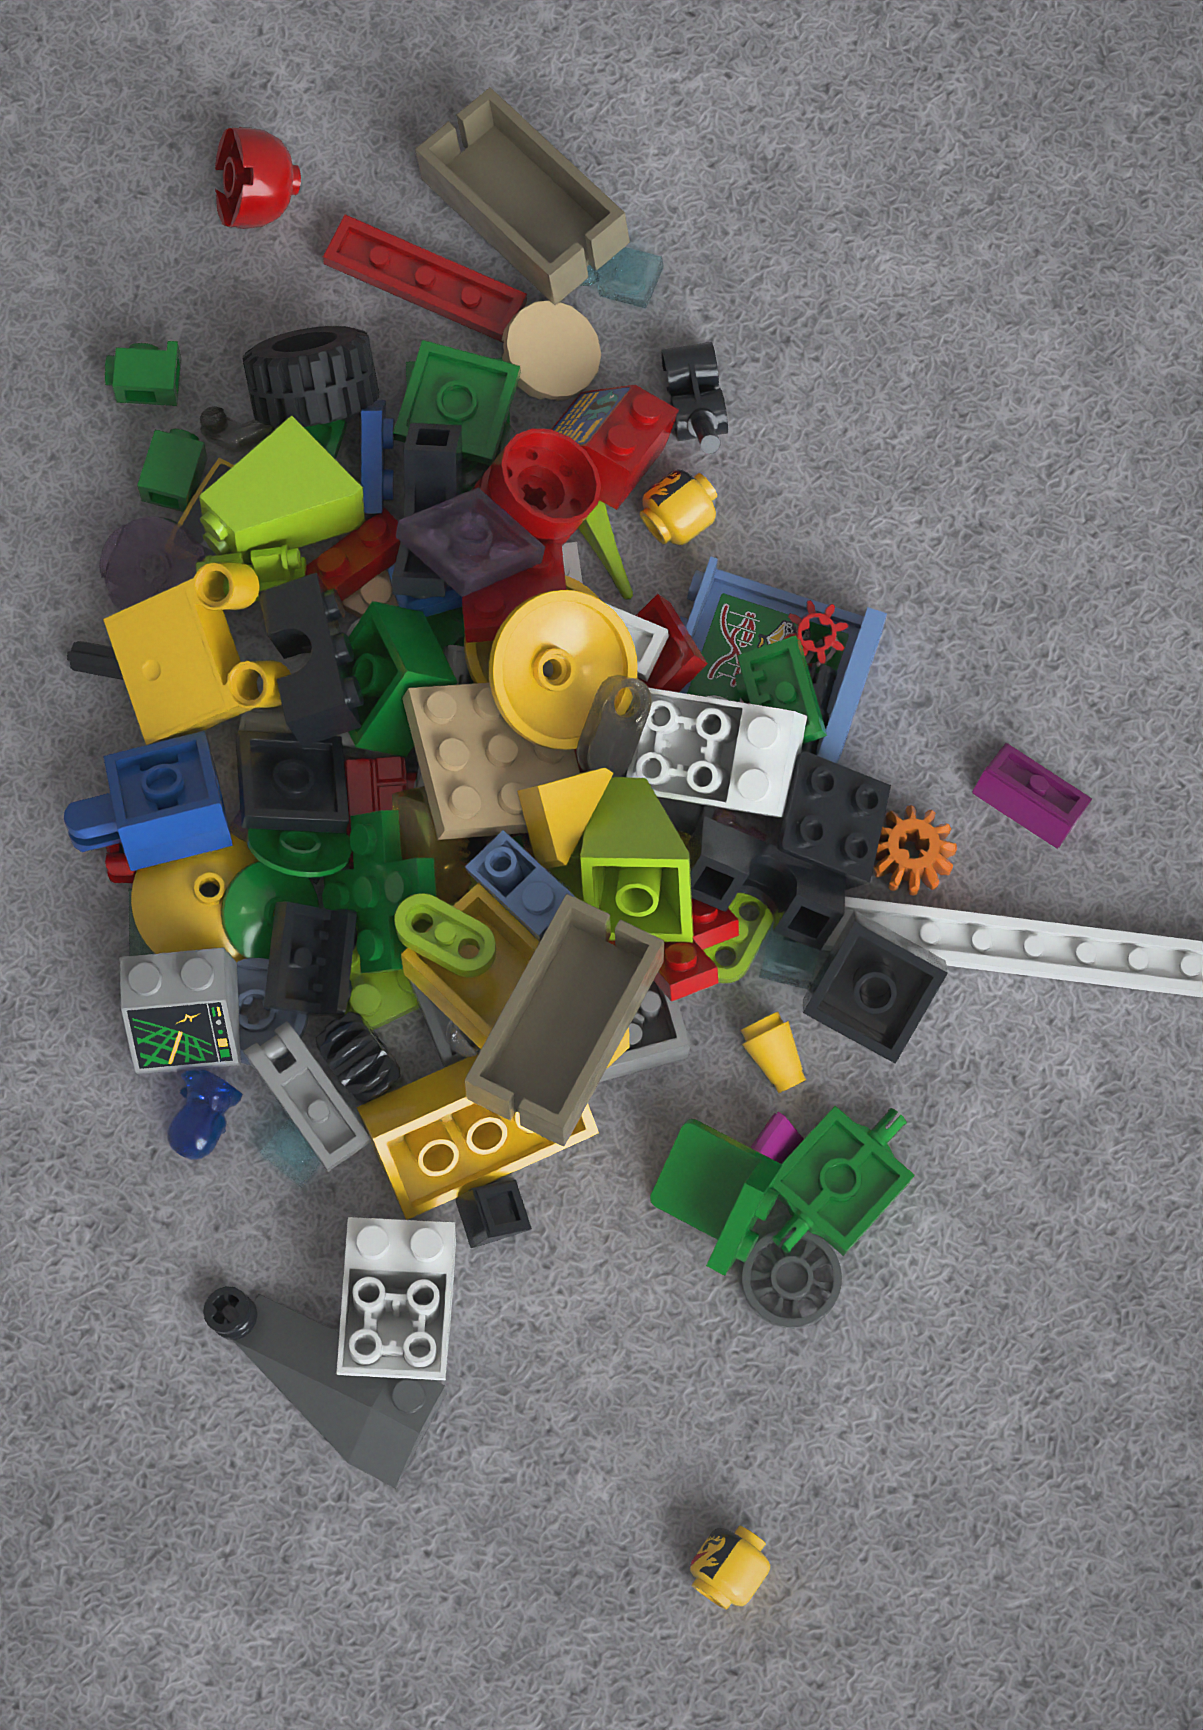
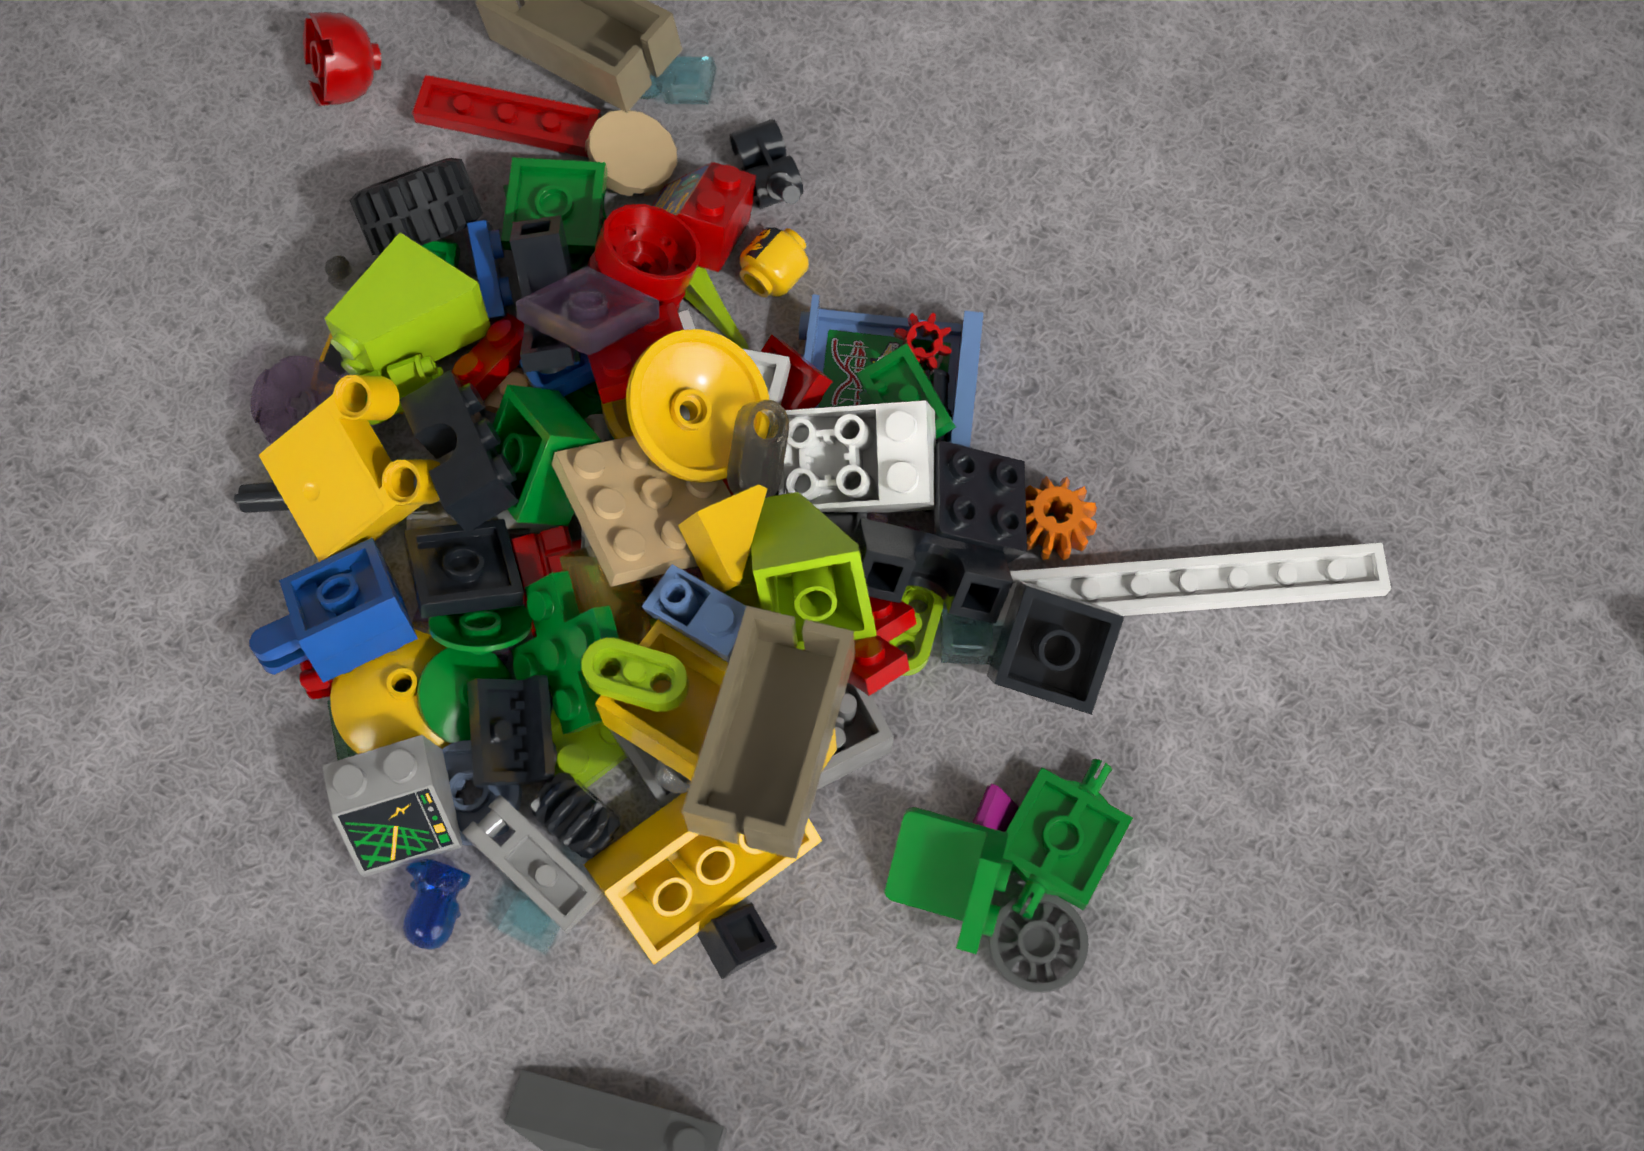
camera: 10 degrees left, 5 degrees down
(145, 374) = (268, 240): green brick -> none
(172, 469) = (301, 316): green brick -> none
(216, 1319) = (508, 1086): black bush -> none
(396, 1298) = (658, 1048): white slope -> none
(774, 1051) = (972, 728): yellow cone -> none
(1031, 795) = (1149, 450): magenta slope -> none

